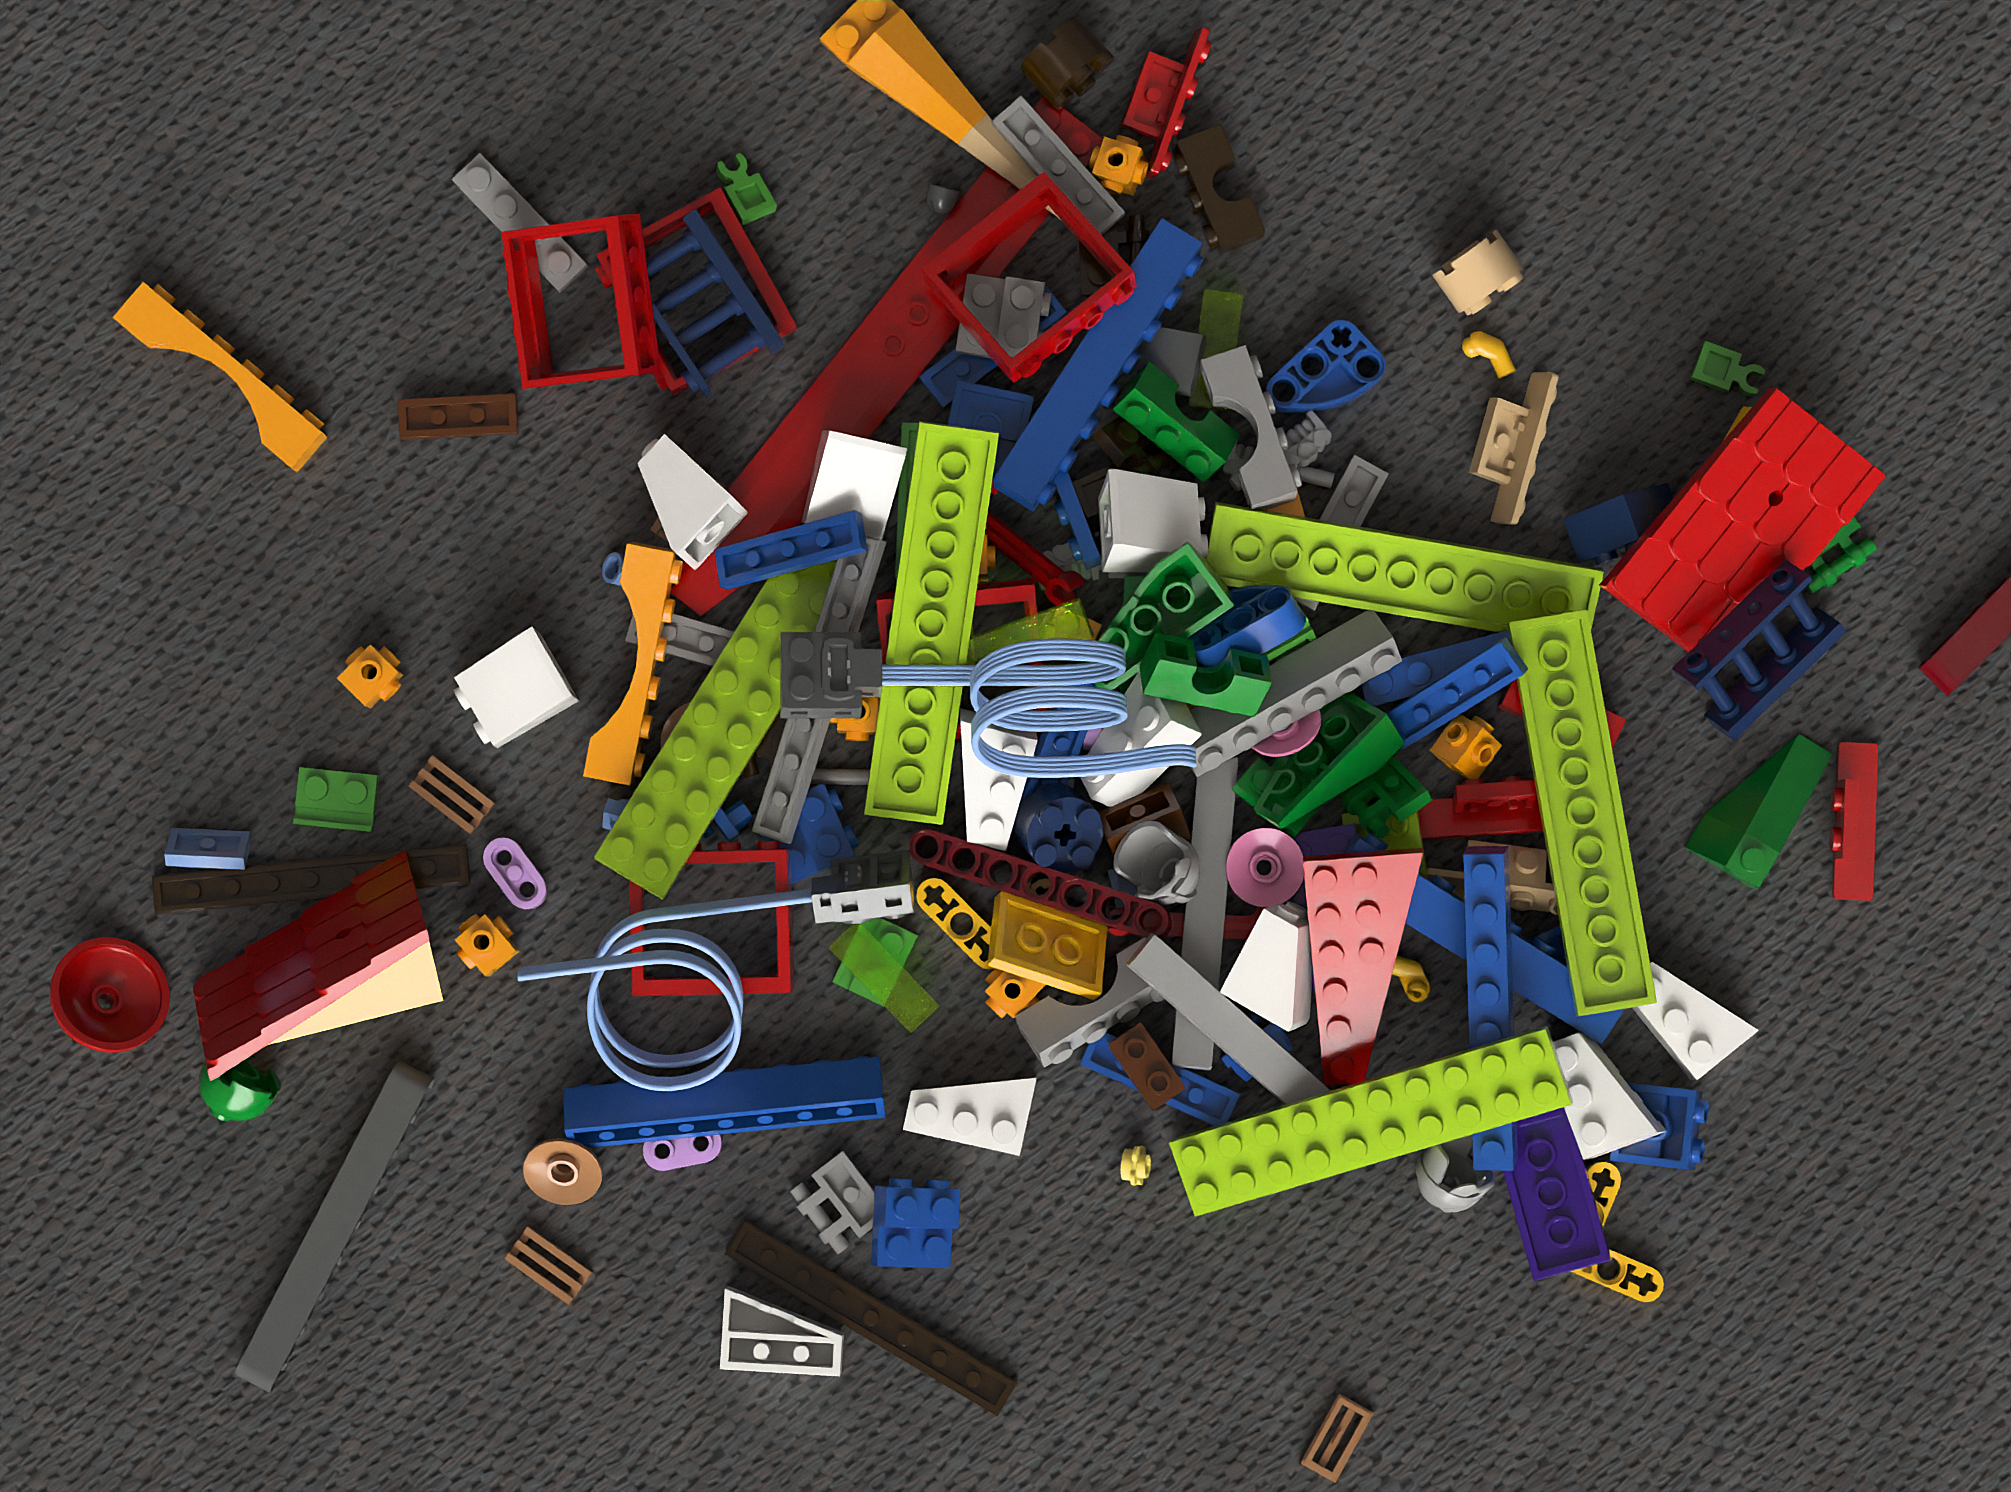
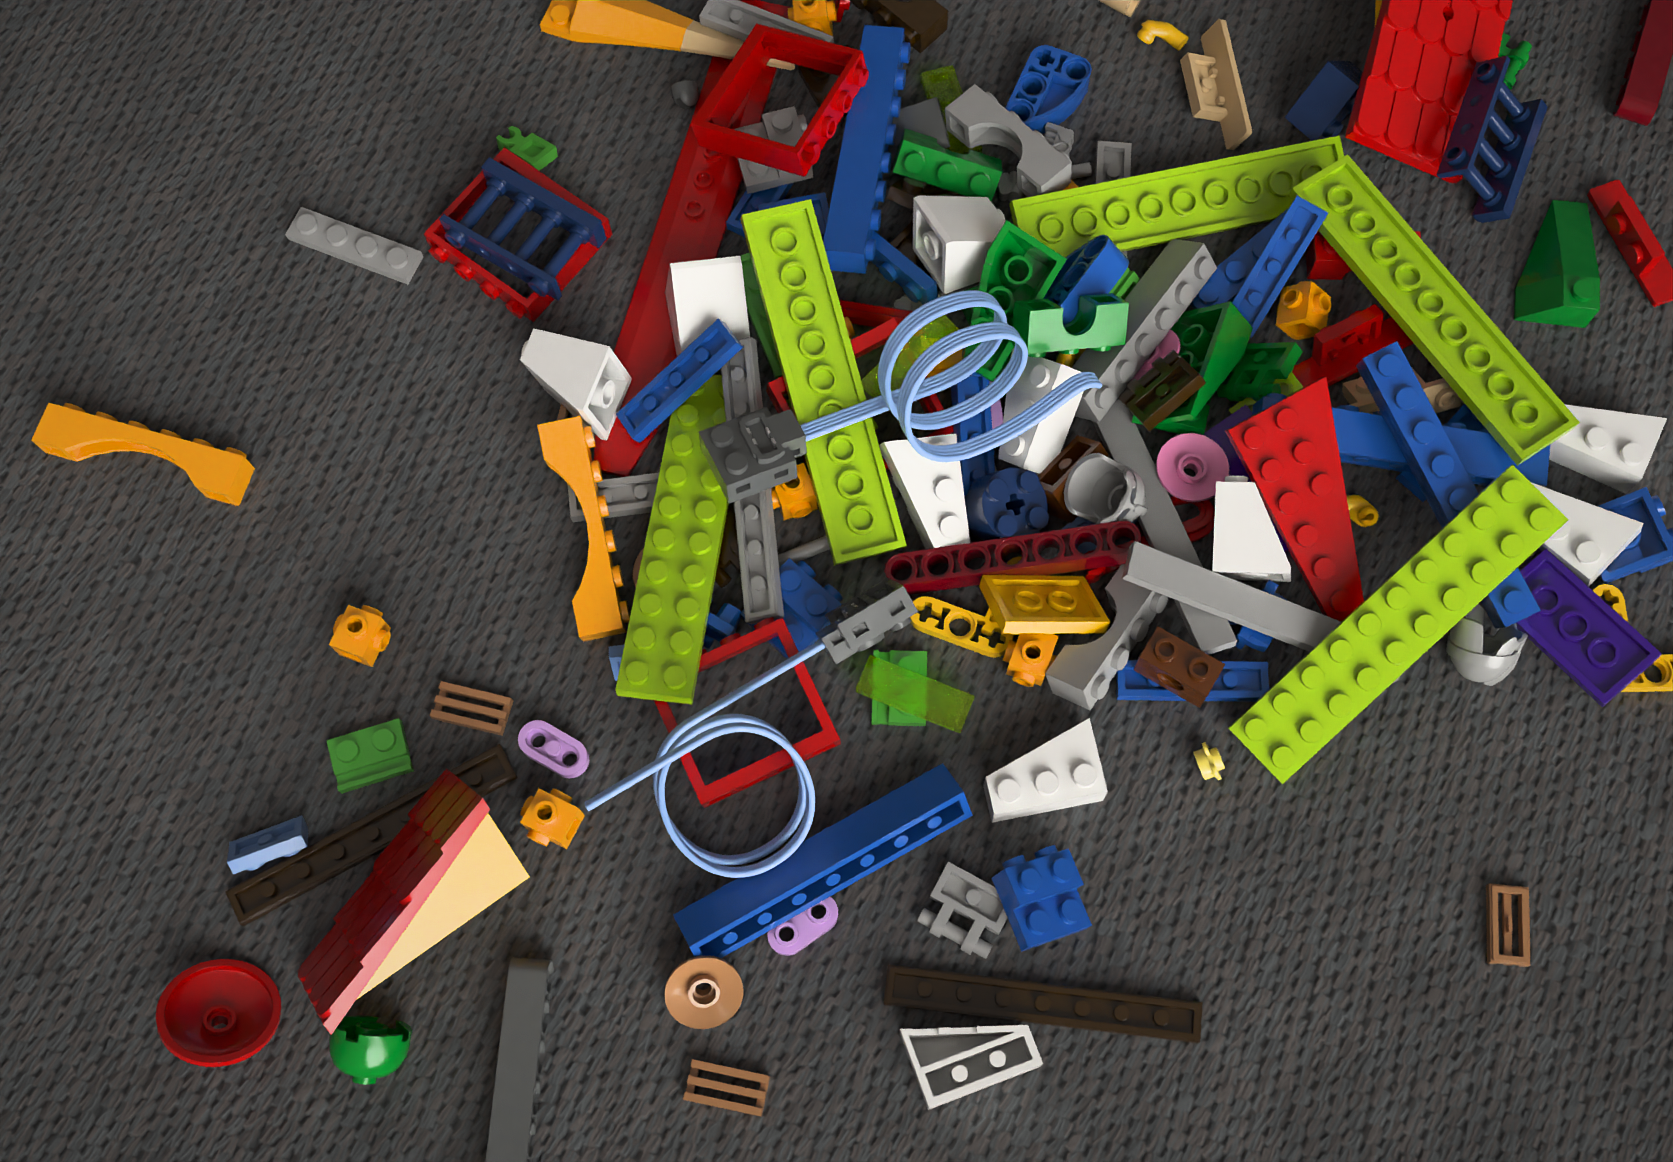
camera: 20 degrees left, 15 degrees down
(458, 416) = (358, 405): reddish brown plate -> none
(514, 688) = (491, 590): white slope -> none
(612, 568) = (538, 467): medium blue hinge -> none
(630, 291) = (466, 238): red window -> none
(1267, 788) = (1161, 389): none -> dark brown plate

